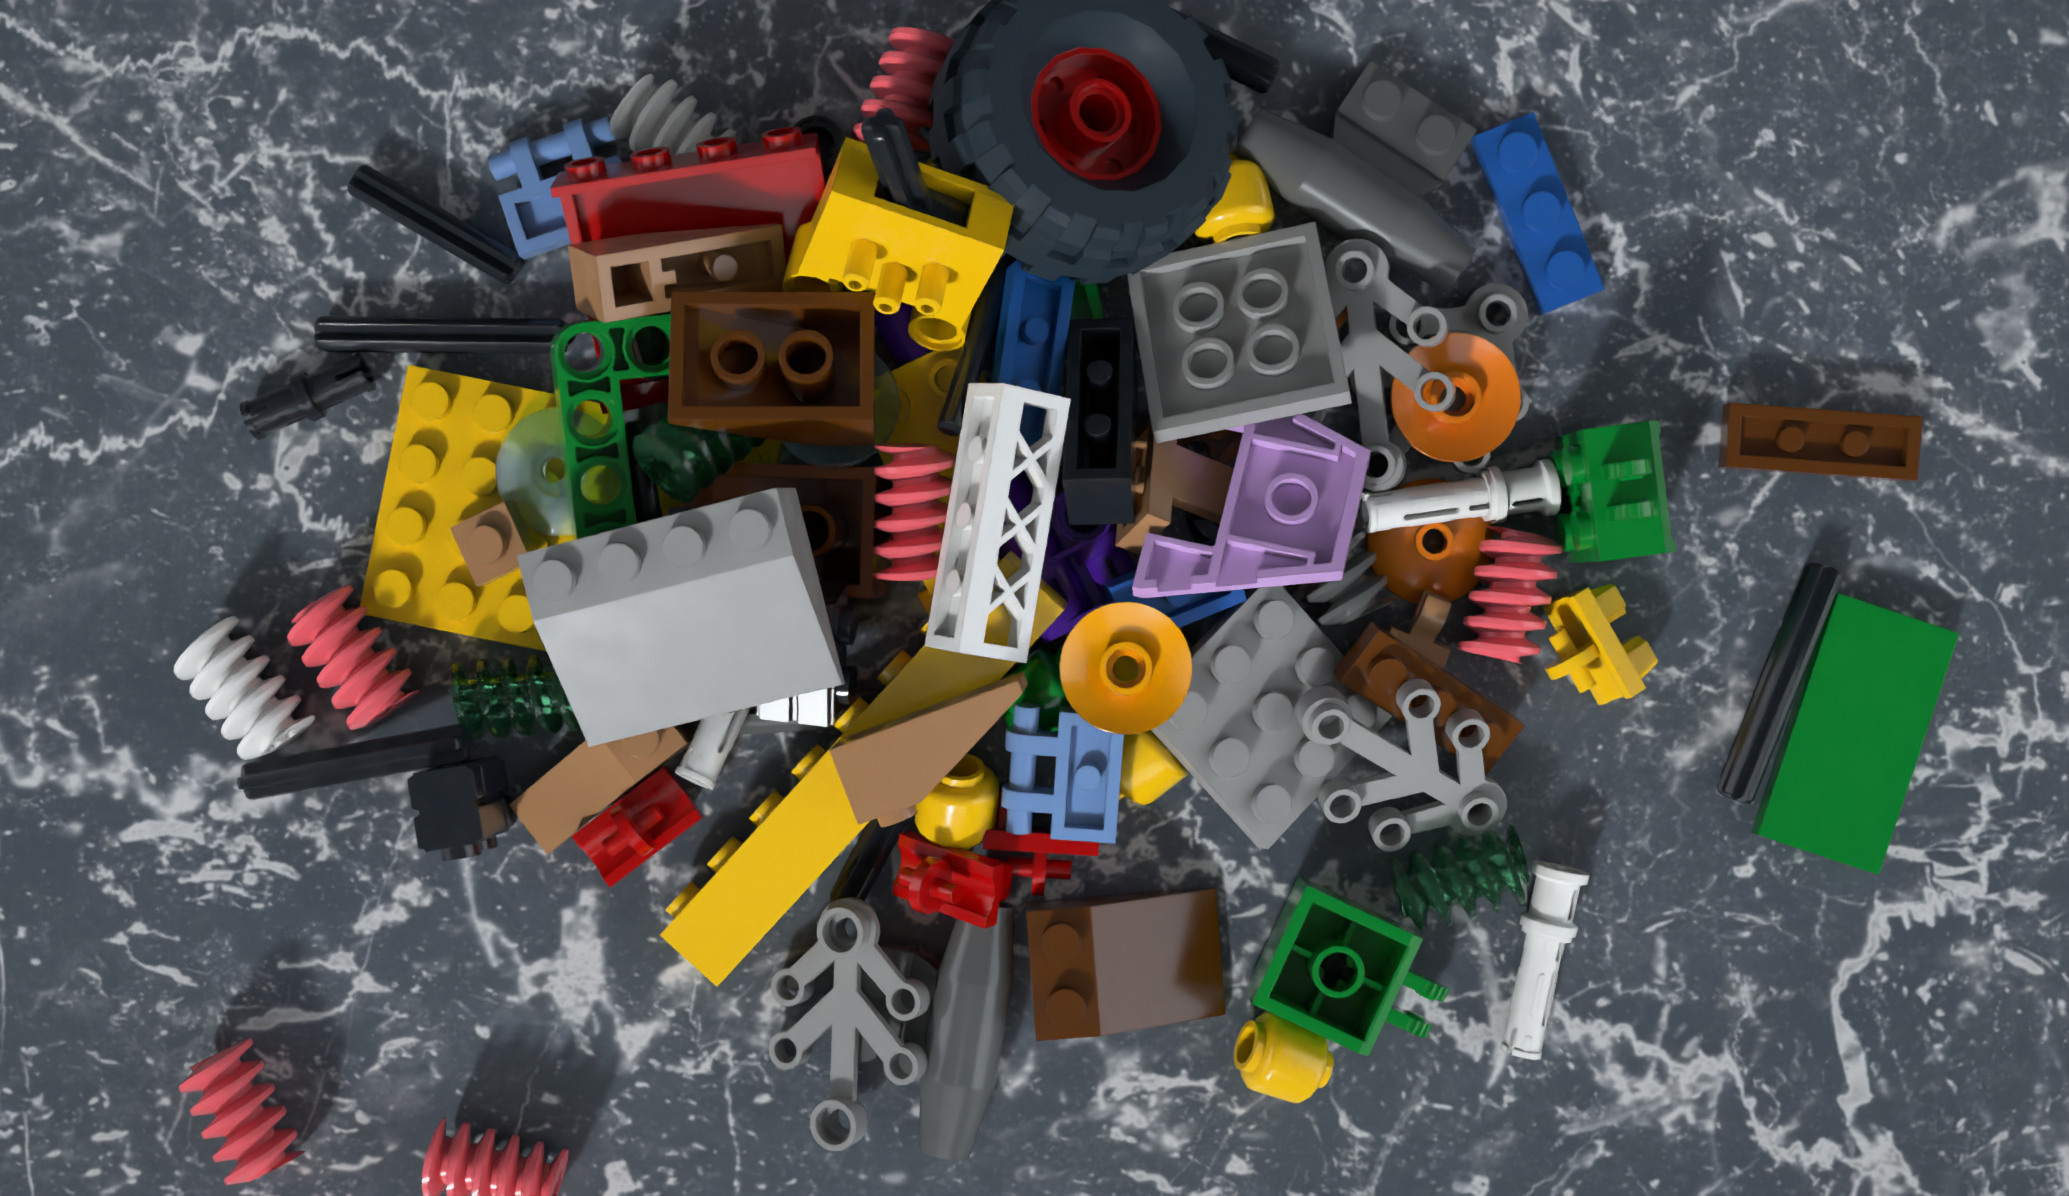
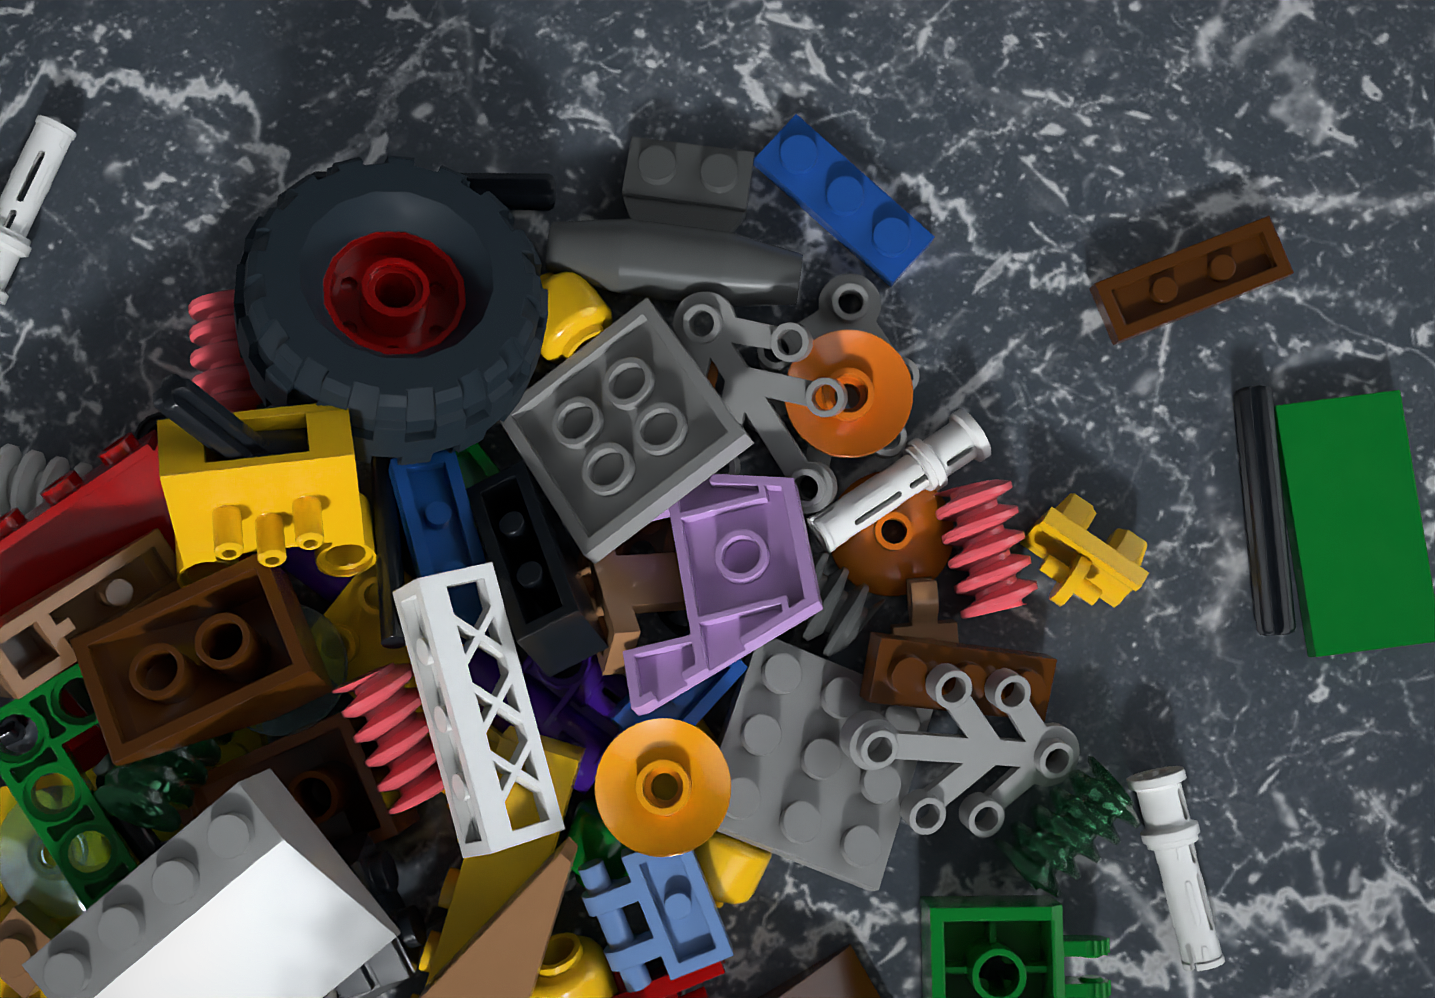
camera: 25 degrees left, 5 degrees down
(1612, 493) = (1031, 411): green hinge -> none

